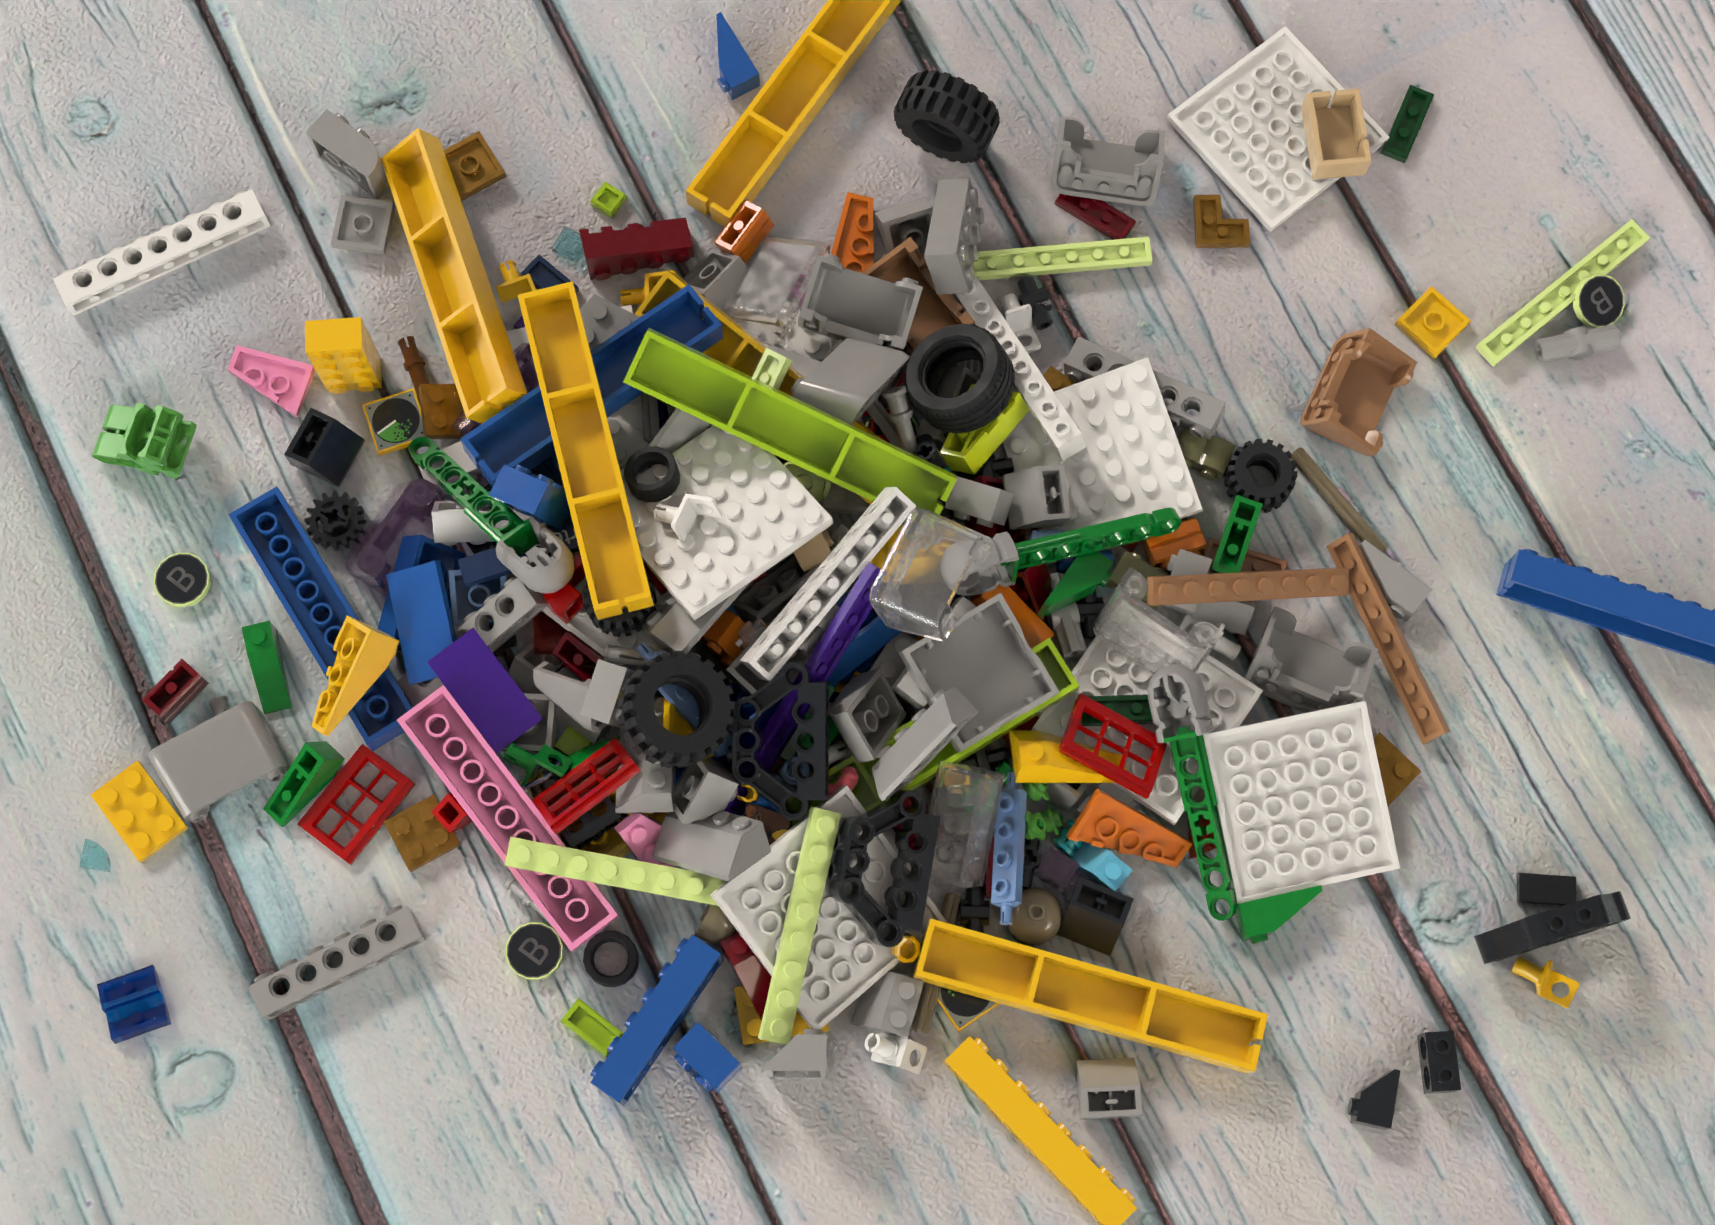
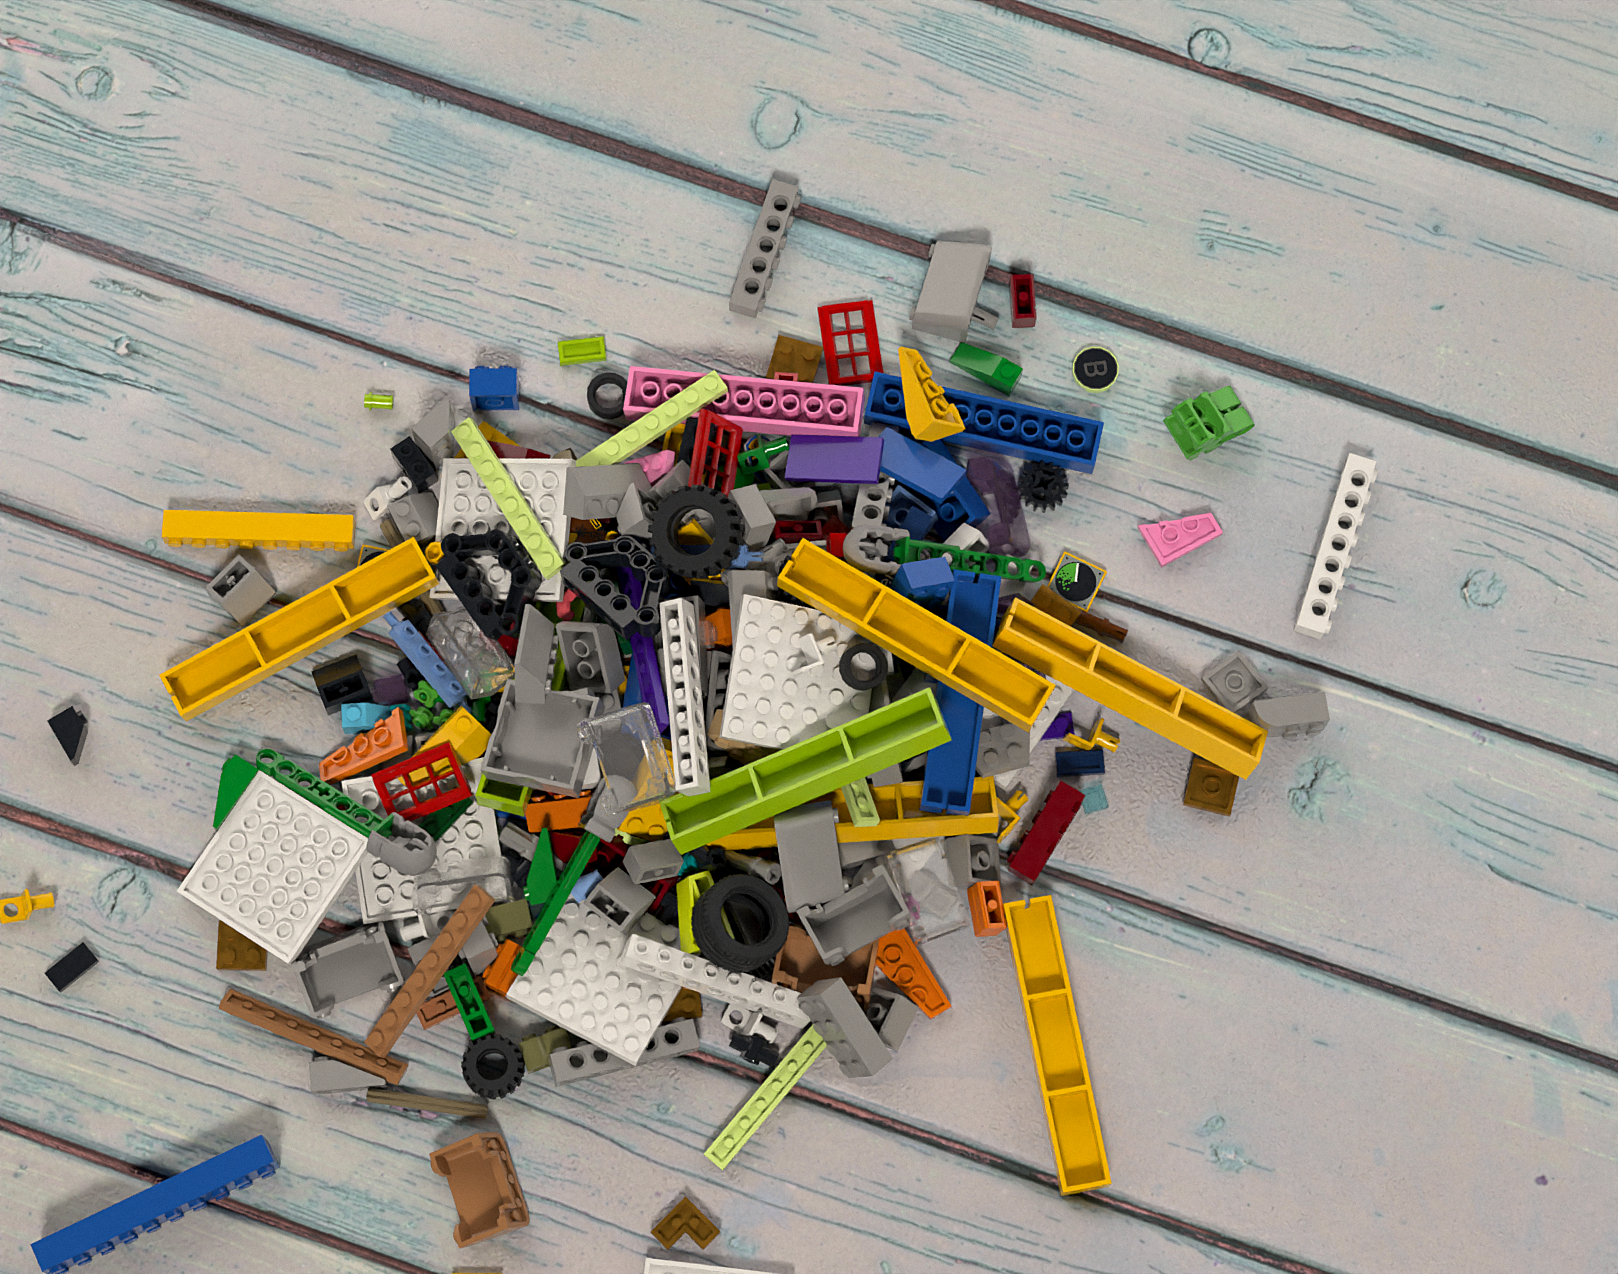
camera: 135 degrees right, 0 degrees up
(94, 857) = (967, 177): clear light blue tile -> none
(133, 1004) = (856, 125): clear blue slope -> none
(139, 811) = (971, 222): yellow plate -> none
(303, 781) = (893, 323): green slope -> none
(324, 447) = (1097, 521): black slope -> none
(343, 354) = (1139, 574): yellow brick -> none
(534, 951) = (659, 354): black tile -> none
(608, 200) = (1101, 853): lime tile -> none
(657, 1019) = (544, 373): blue brick -> none
(735, 67) = (1120, 1025): blue slope -> none
(818, 1156) = (378, 401): none -> lime pin
(844, 1059) = (414, 464): none -> black brick
(946, 116) = (931, 1108): black tyre -> none
(1036, 917) = (379, 653): dark tan cylinder -> none
(1097, 215) = (776, 1157): dark red tile -> none
(1107, 169) = (800, 1194): light grey windscreen -> none
(1438, 1062) = (50, 791): black brick -> none
(1552, 926) = (44, 934): black brick -> none

